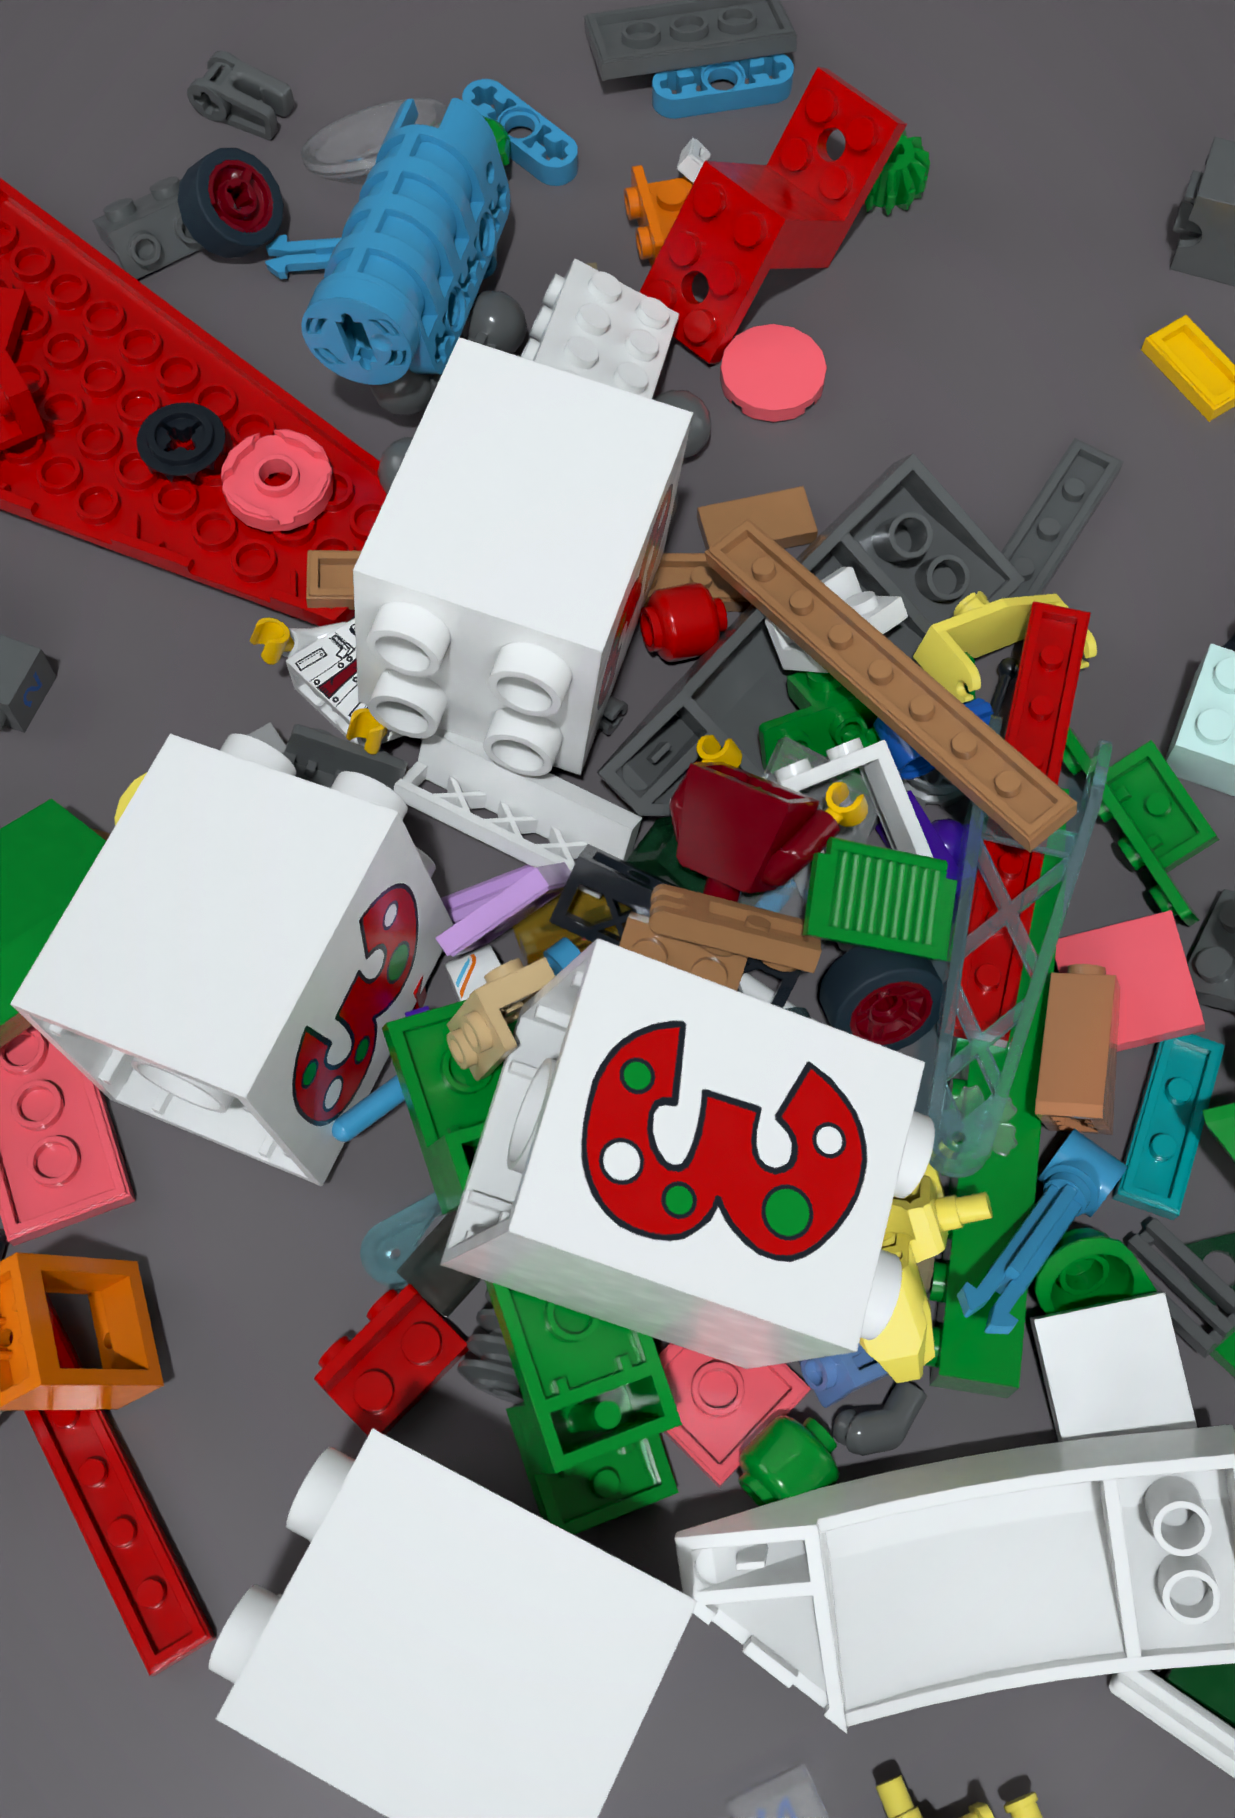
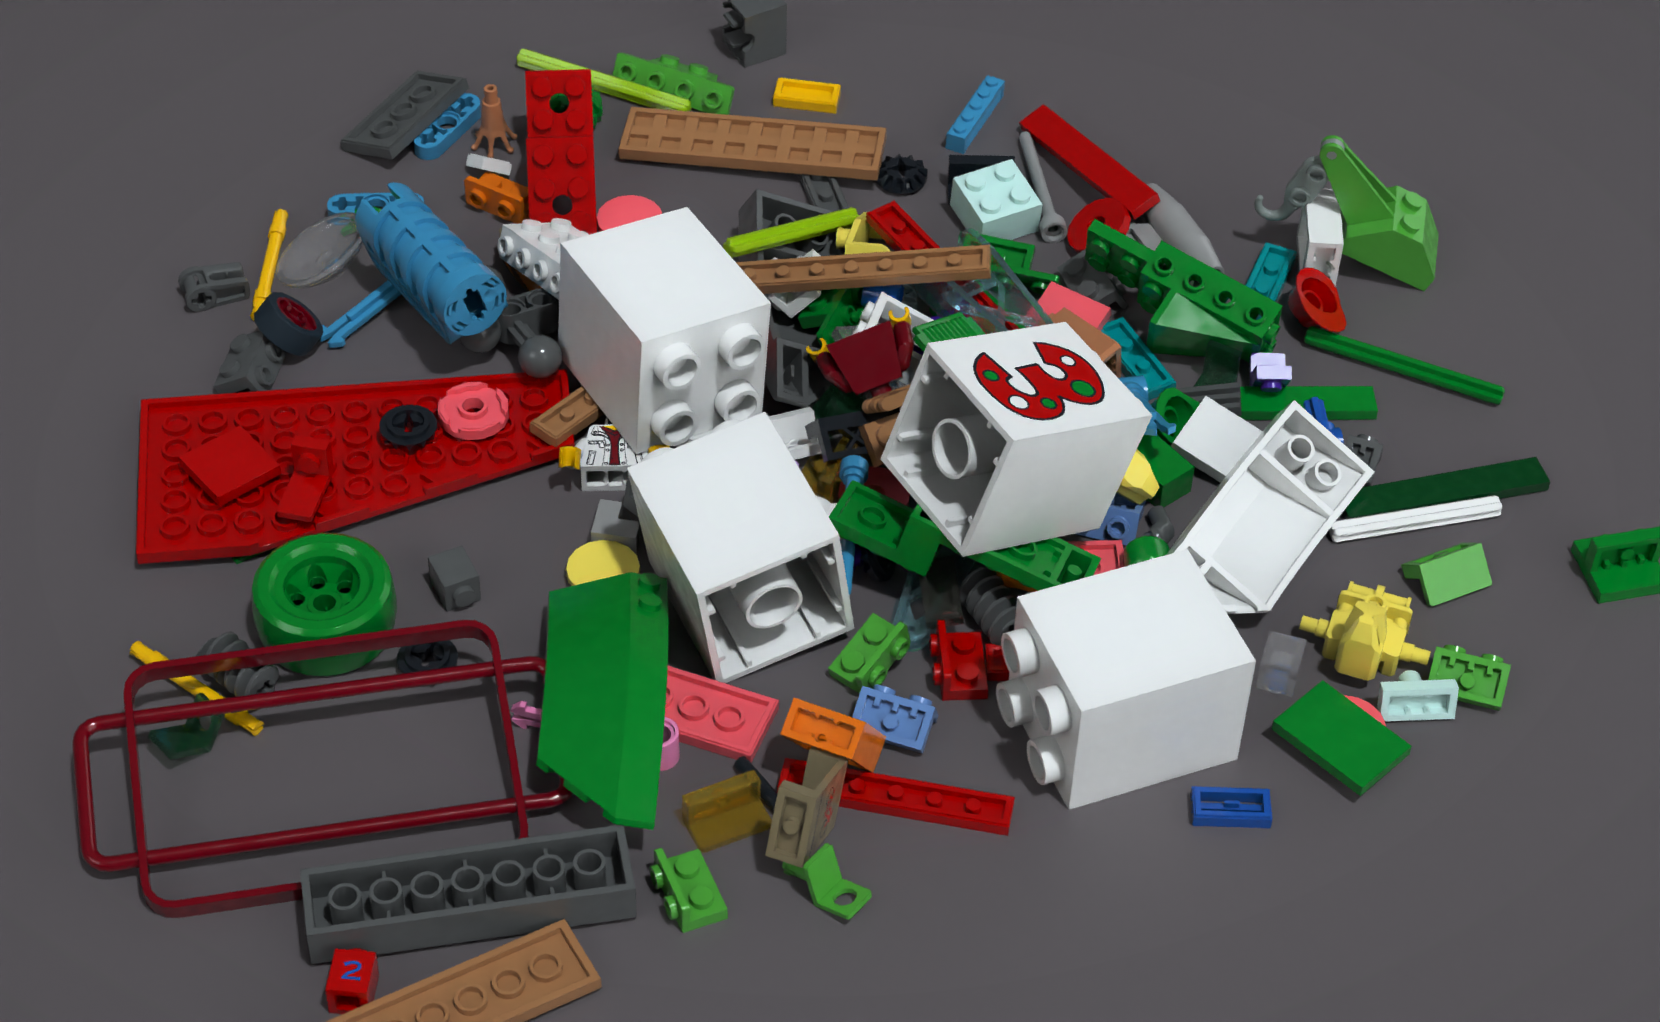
camera: 50 degrees left, 20 degrees down
(216, 1363) = (900, 719): none -> medium blue bracket
(297, 1242) = (870, 653): none -> bright green bracket
(381, 84) = (276, 237): none -> yellow piece
(444, 1416) = (995, 664): none -> red tile
(479, 1028) = (877, 475): tan bracket -> none
(505, 909) = (811, 452): lavender tile -> none
(755, 114) = (493, 122): none -> nougat piece
(895, 549) = (789, 232): none -> lime axle
(967, 164) = (607, 83): none -> lime axle
(1043, 389) = (753, 143): none -> medium nougat plate
(1050, 223) = (678, 79): none -> bright green bracket
(1192, 595) = (914, 177): none -> black gear

